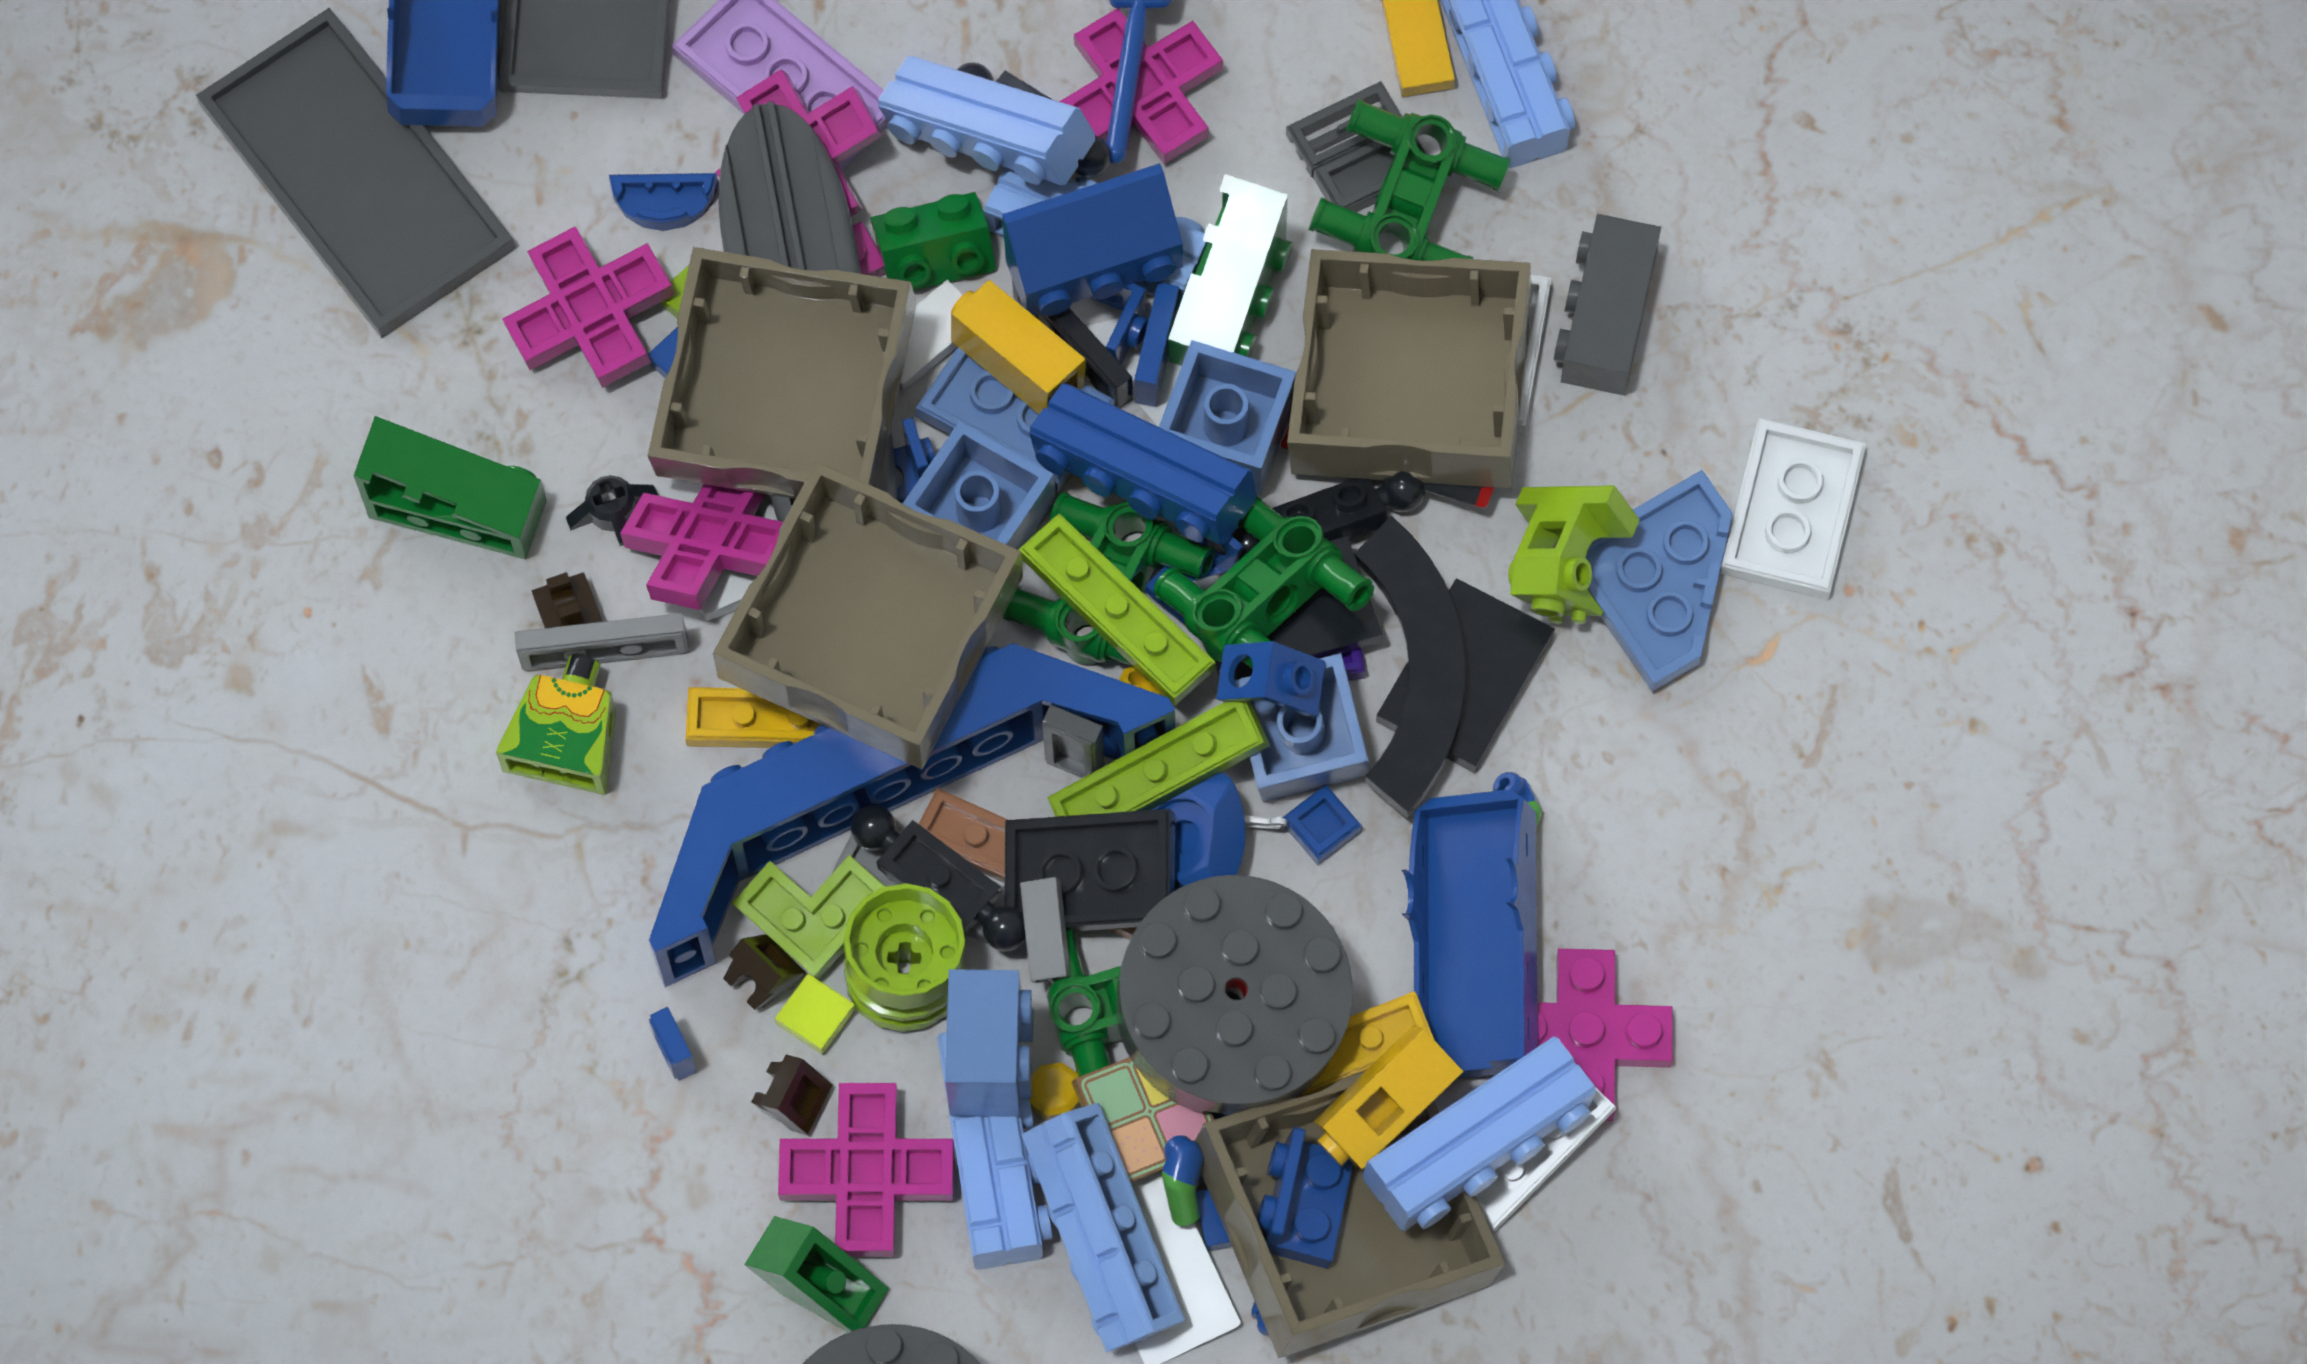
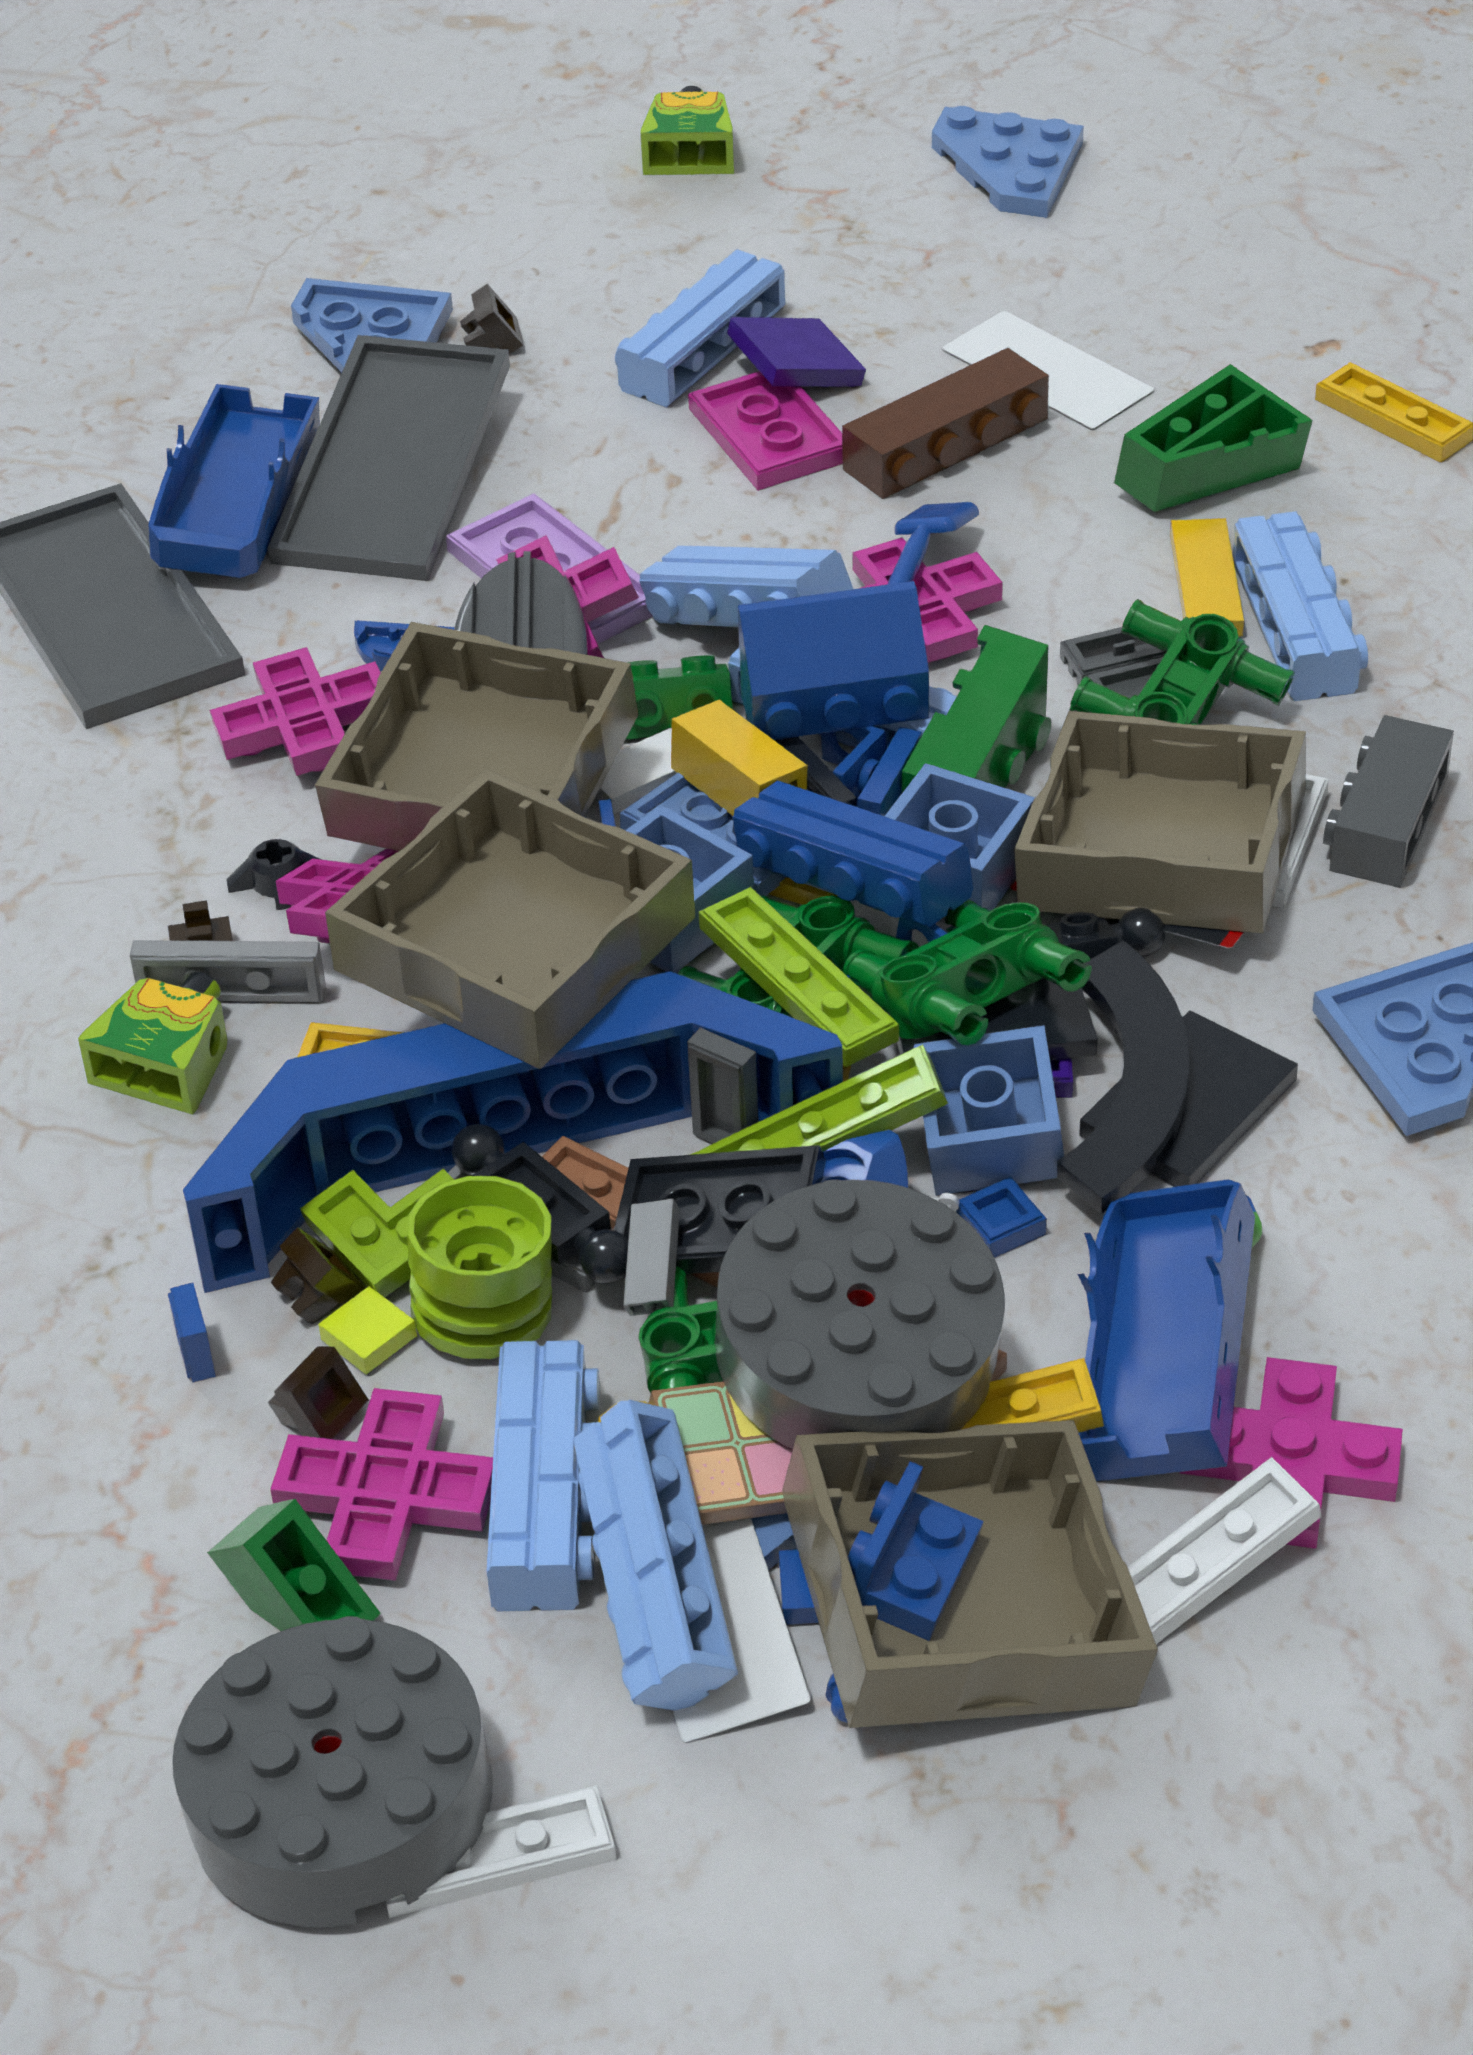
camera: 10 degrees right, 25 degrees down
(447, 490) = (101, 827): green wedge -> none
(984, 1040) = (549, 1327): medium blue brick -> none
(1181, 1177) = (760, 1513): arm -> none
(1278, 676) = (966, 1020): blue bracket -> none
(1386, 1098) = (1029, 1440): yellow brick -> none
(1480, 1134) = (1141, 1495): light blue brick -> none
(1559, 577) = (1307, 975): lime tile -> none

